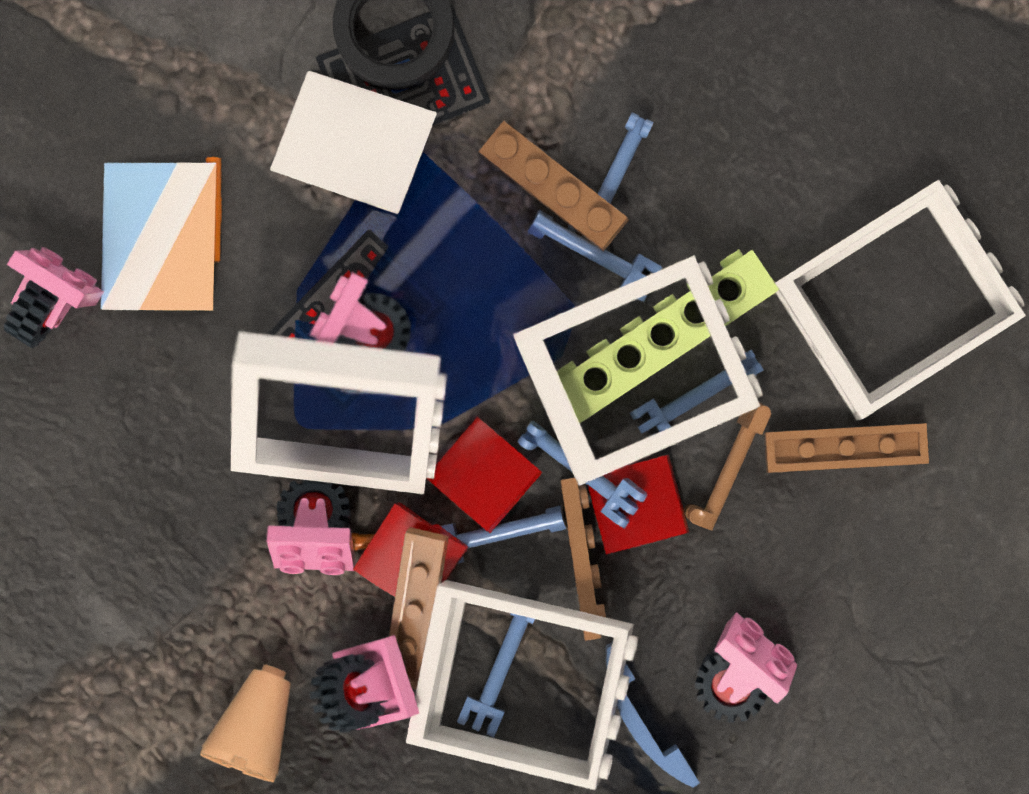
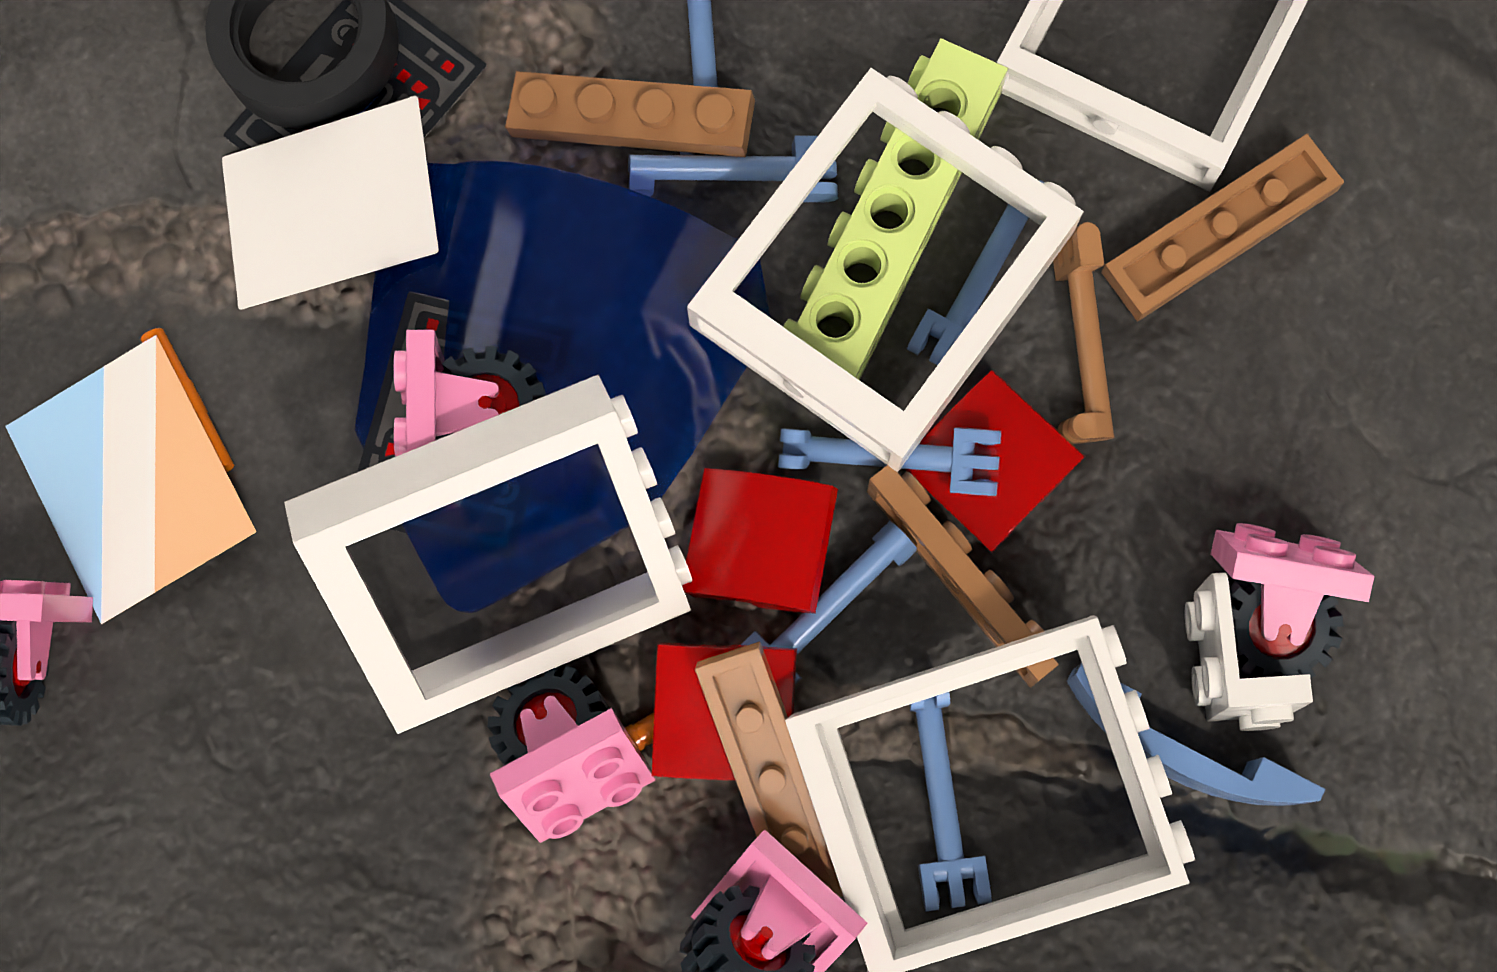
camera: 25 degrees left, 10 degrees down
(692, 719) = (1216, 683): none -> white bracket

